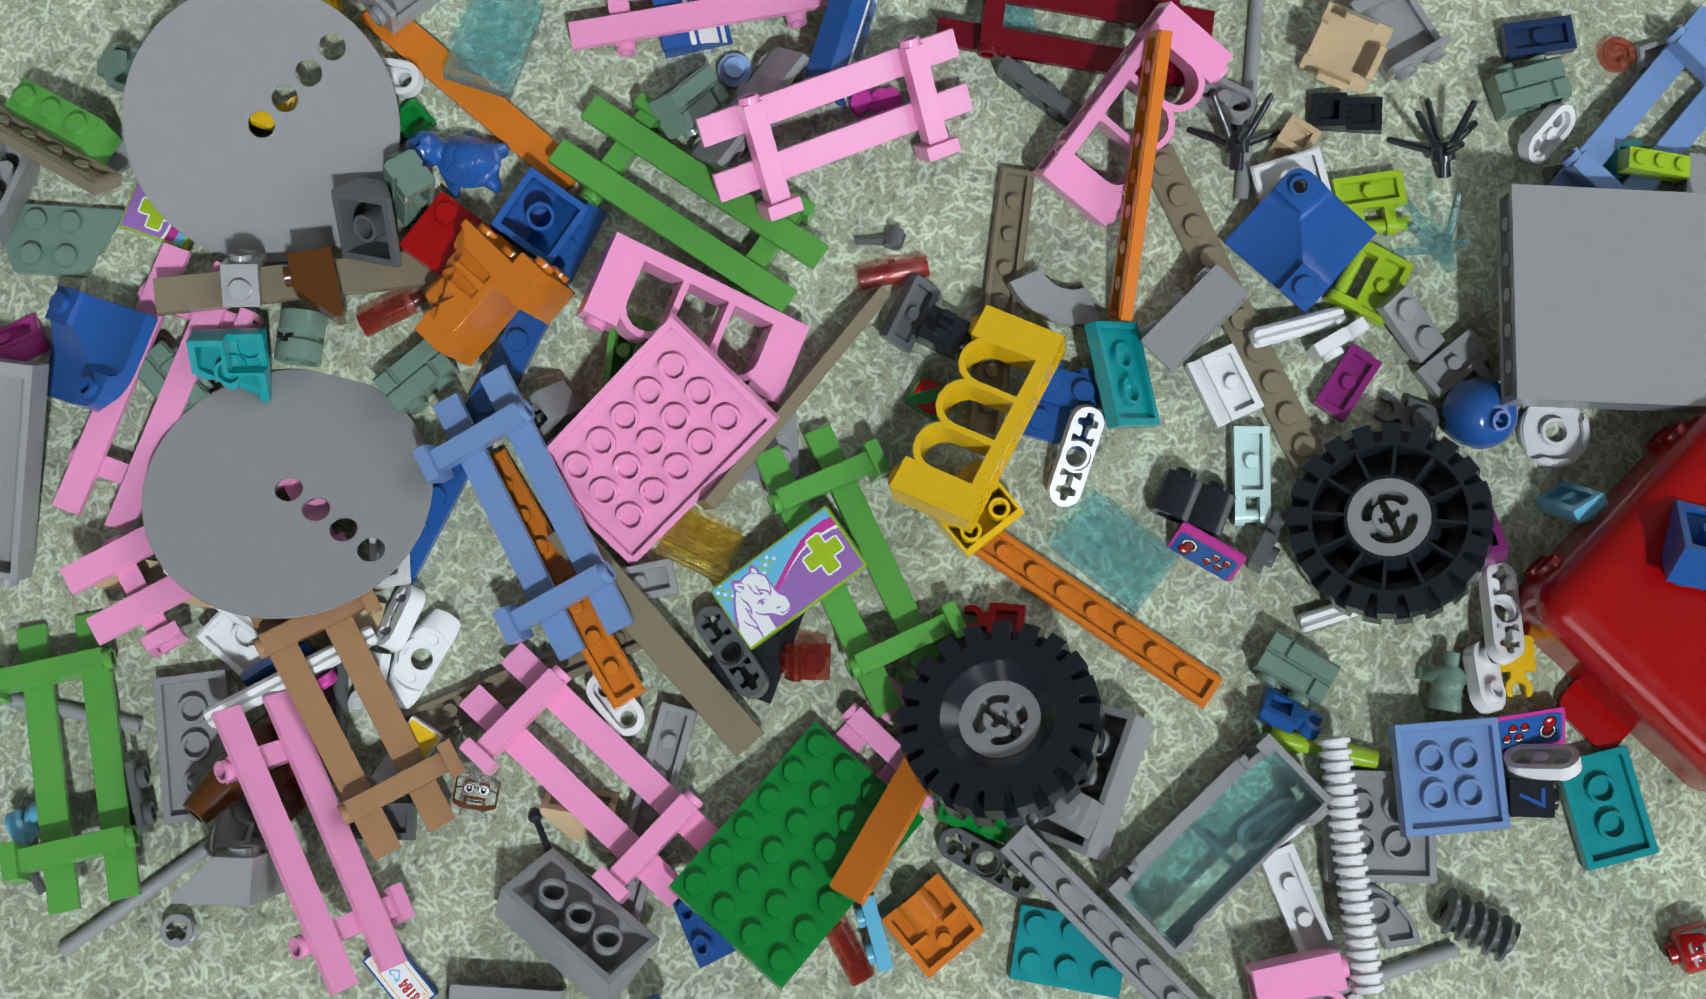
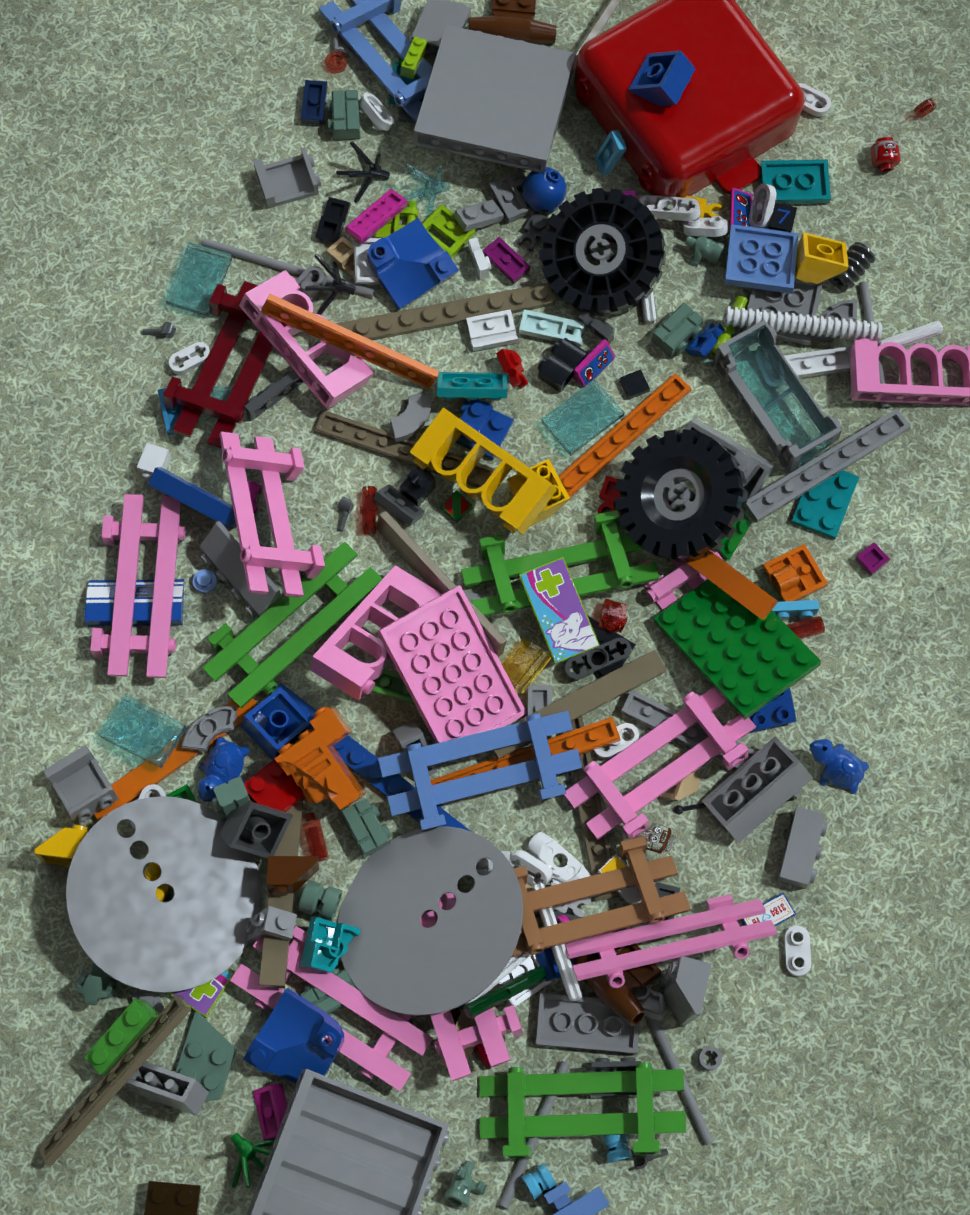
camera: 80 degrees left, 10 degrees down
(197, 617) = (505, 992): none -> dark green axle
(518, 127) = (208, 727): none -> light grey tile
(688, 99) = (223, 608): sand green brick -> none
(957, 857) = (745, 544): dark grey beam -> none
(1092, 433) = (526, 423): white beam -> none
(1171, 429) = (512, 365): none -> red plate
(1189, 620) = (634, 384): none -> black tile
(1193, 317) = (445, 335): light grey brick -> none
(1297, 327) = (465, 279): white axle -> none
(1346, 48) = (294, 208): tan panel -> none
(1363, 170) = (376, 216): none -> dark pink plate
(1473, 871) = (819, 258): none -> yellow slope
(1546, 452) = (577, 152): white tile -> none

